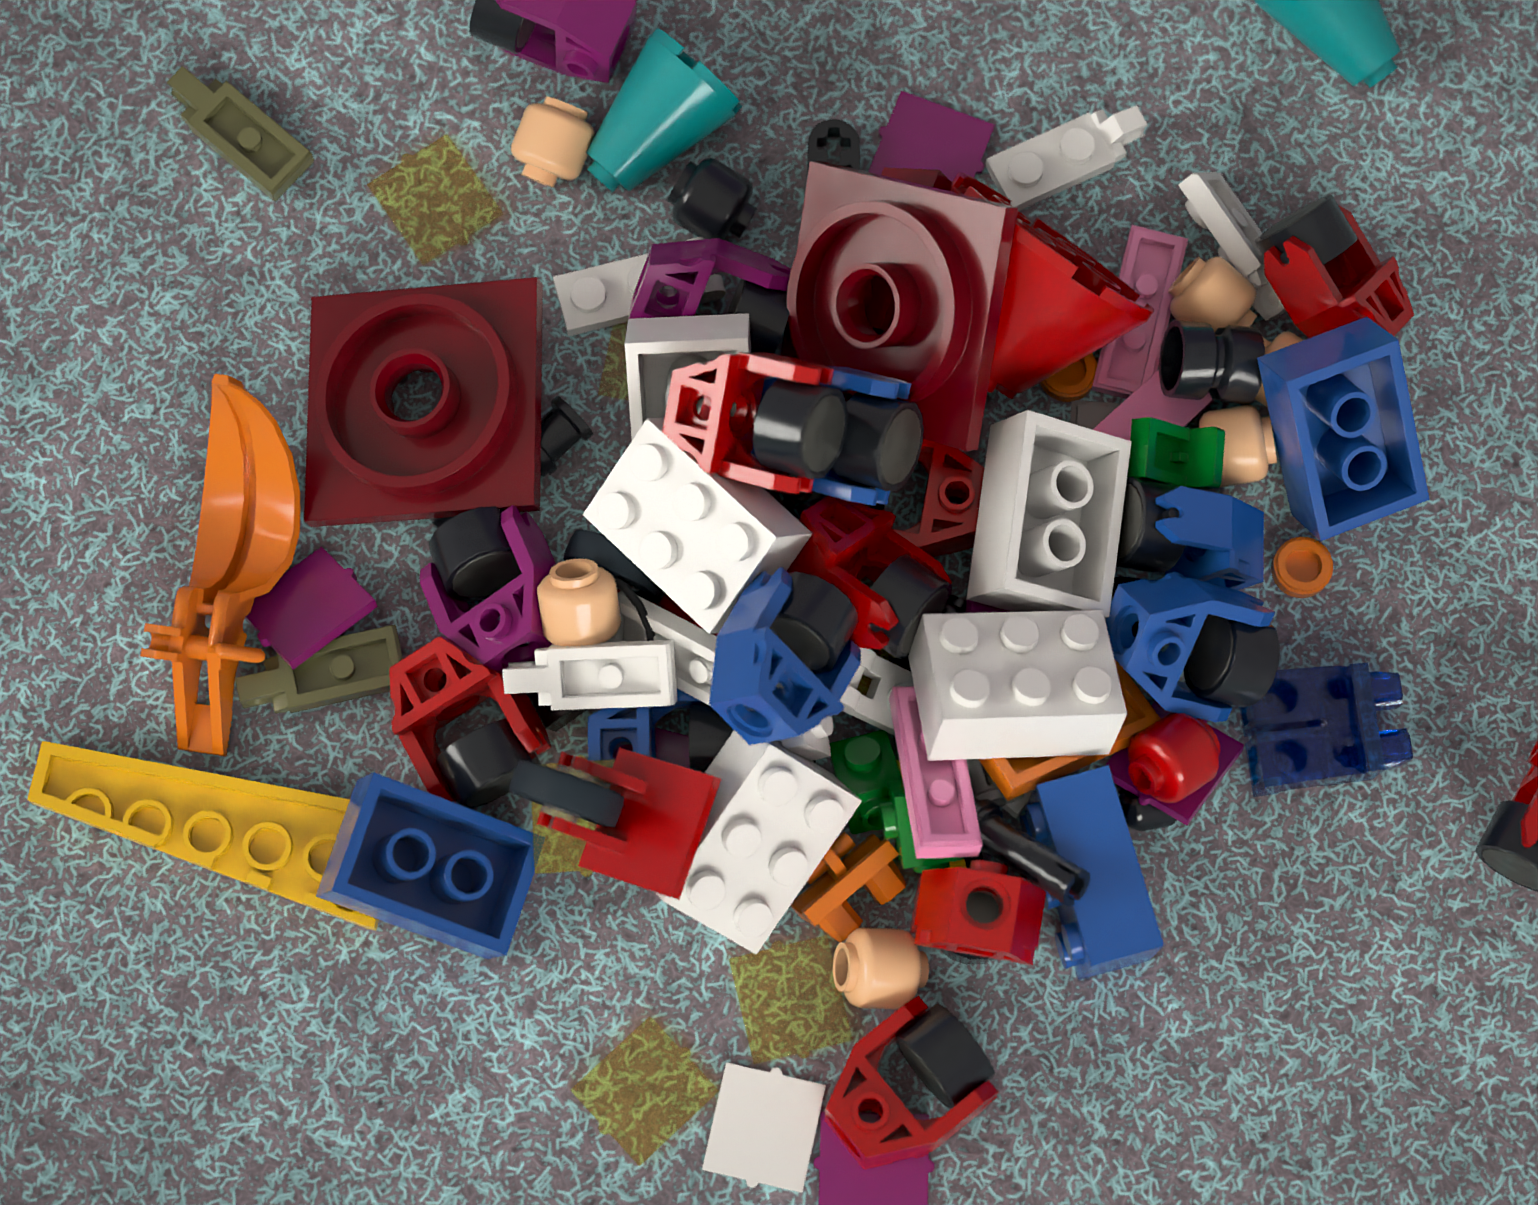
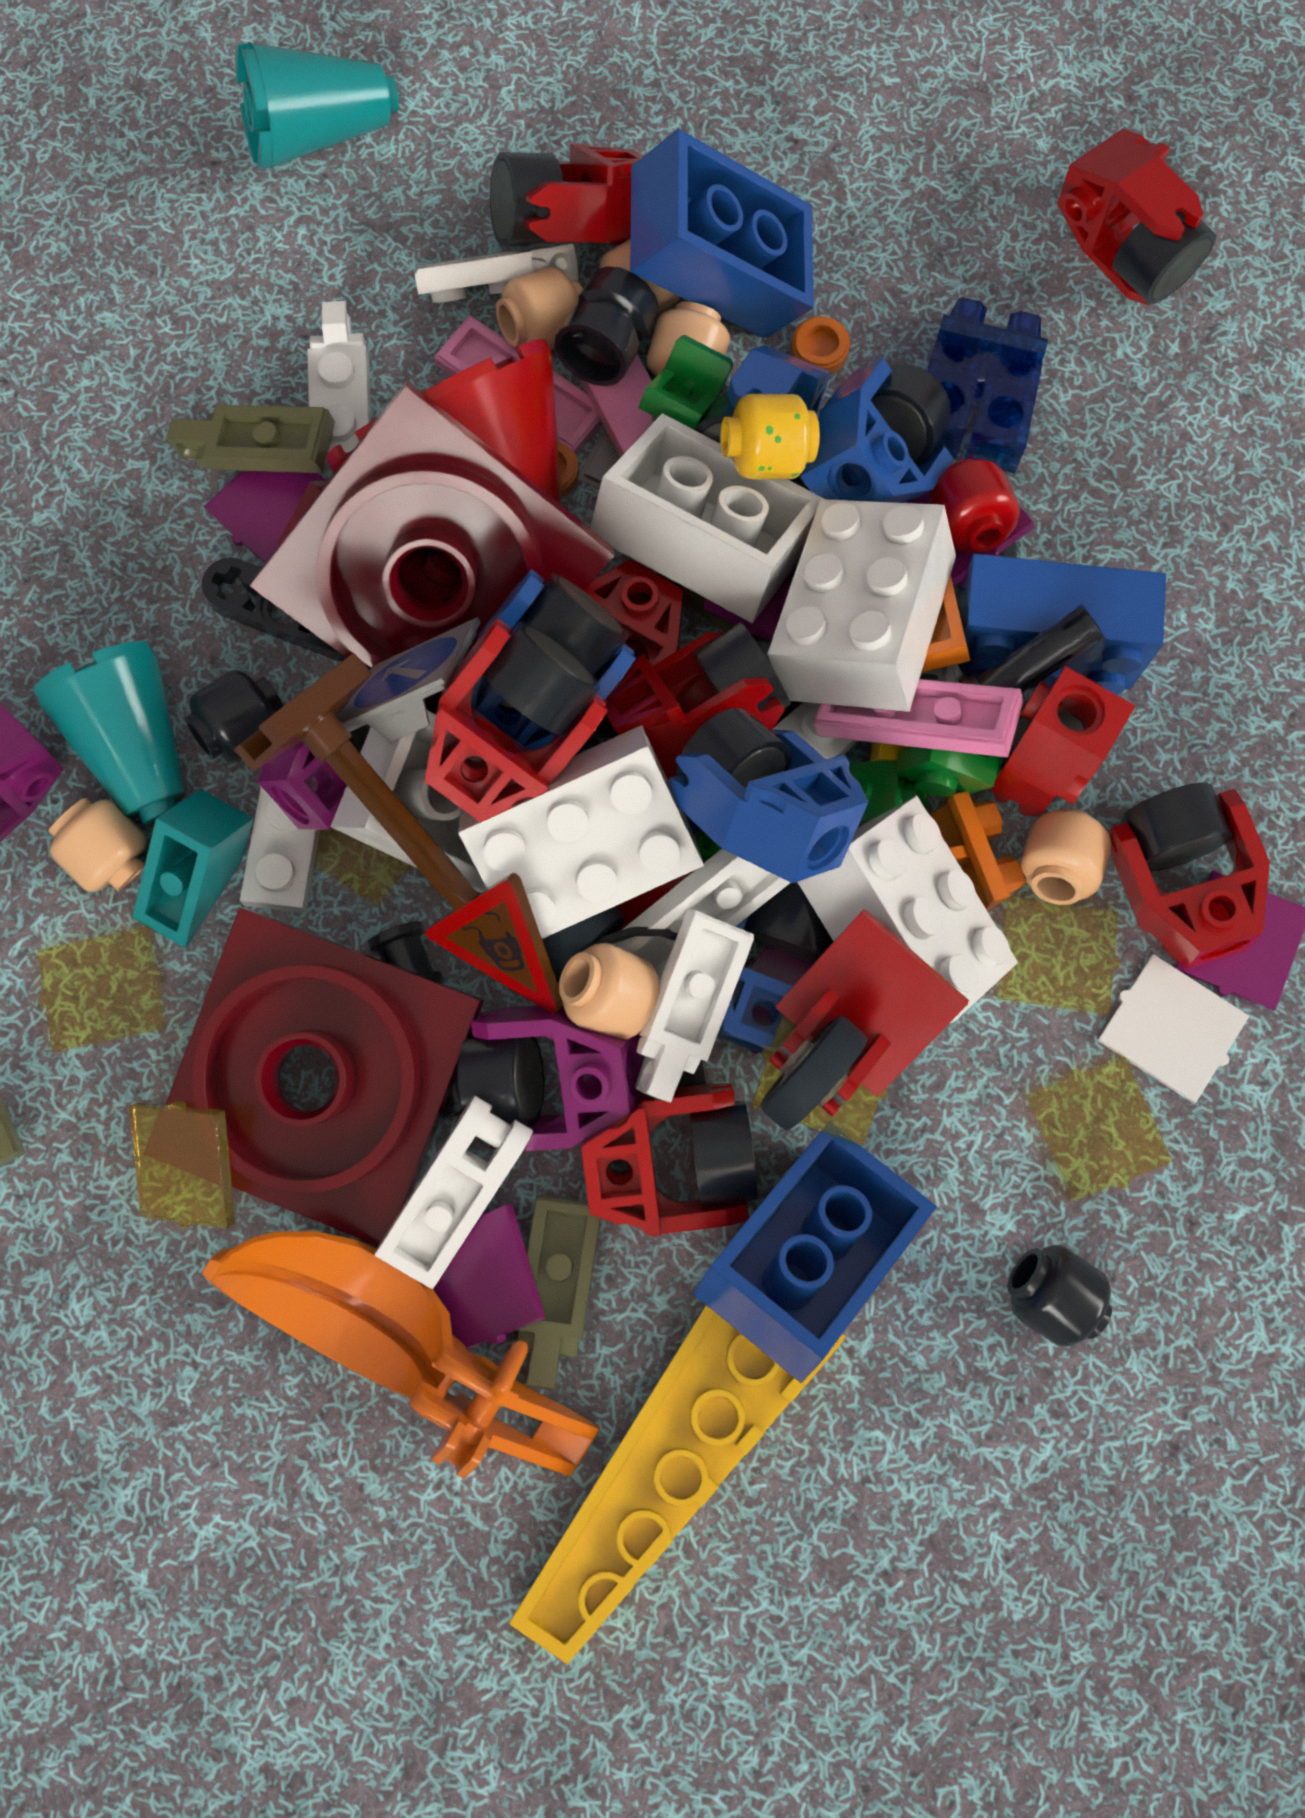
camera: 65 degrees left, 0 degrees up
(309, 327) = (182, 1164): none -> clear yellow piece
(364, 550) = (452, 1194): none -> white plate
(478, 1100) = (1060, 1295): none -> black head
(567, 223) = (190, 864): none -> teal slope
(589, 475) = (486, 927): none -> reddish brown piece
(768, 323) = (396, 690): none -> light grey piece
(977, 108) = (256, 438): none -> olive hinge
(1133, 539) = (770, 436): none -> yellow head

